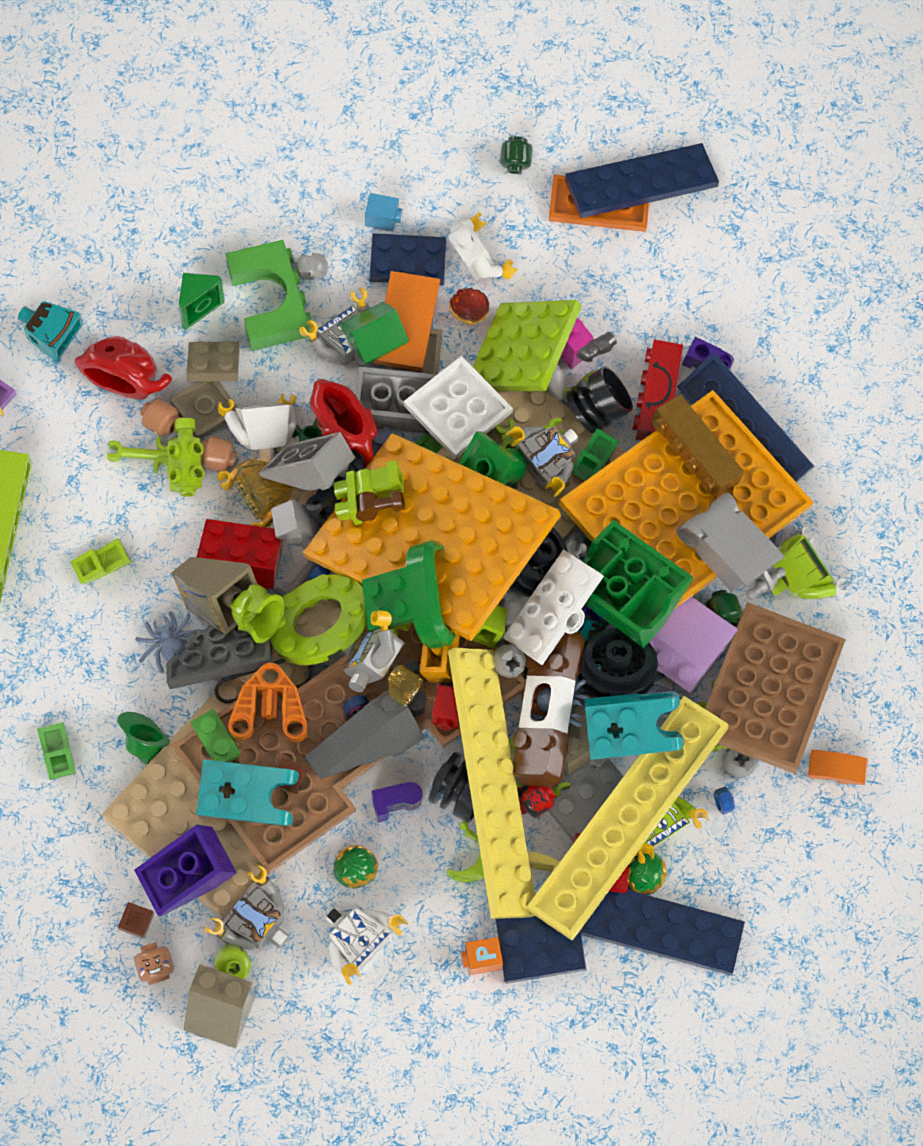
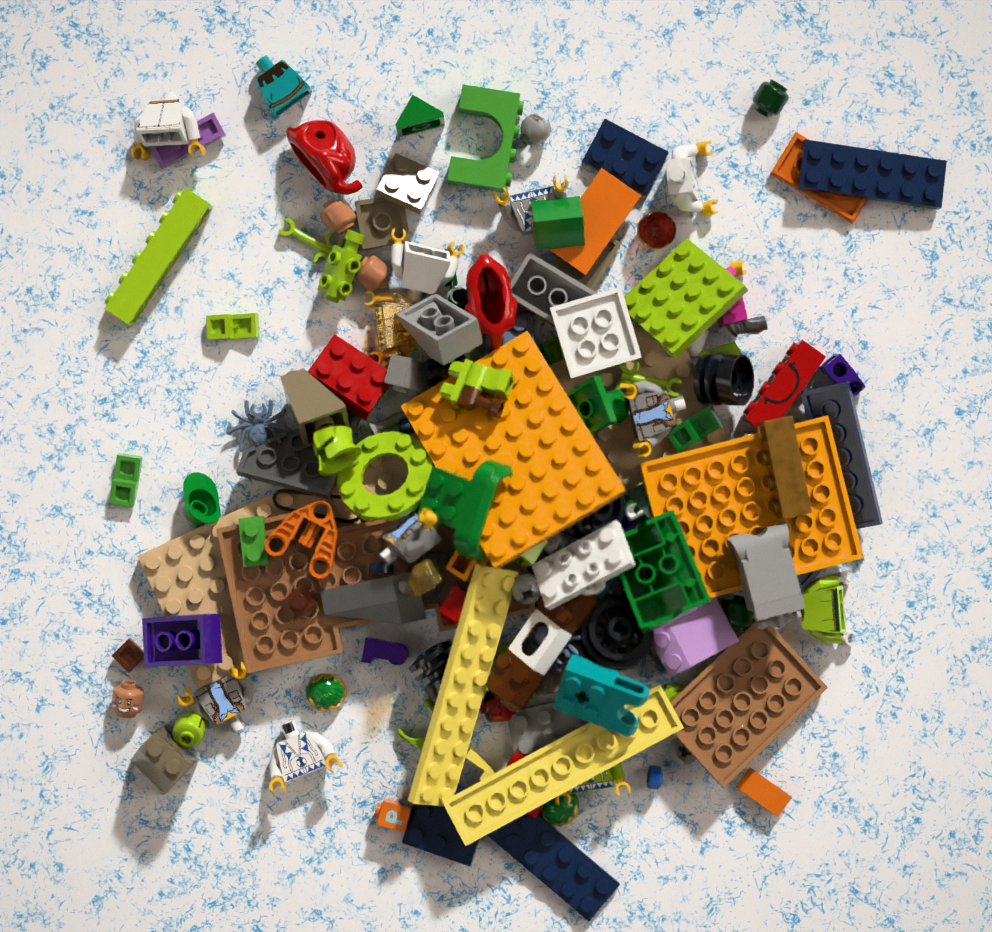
camera: 25 degrees right, 20 degrees up
(252, 792) = (259, 607): teal brick -> none
(382, 212) = (623, 102): dark azure brick -> none

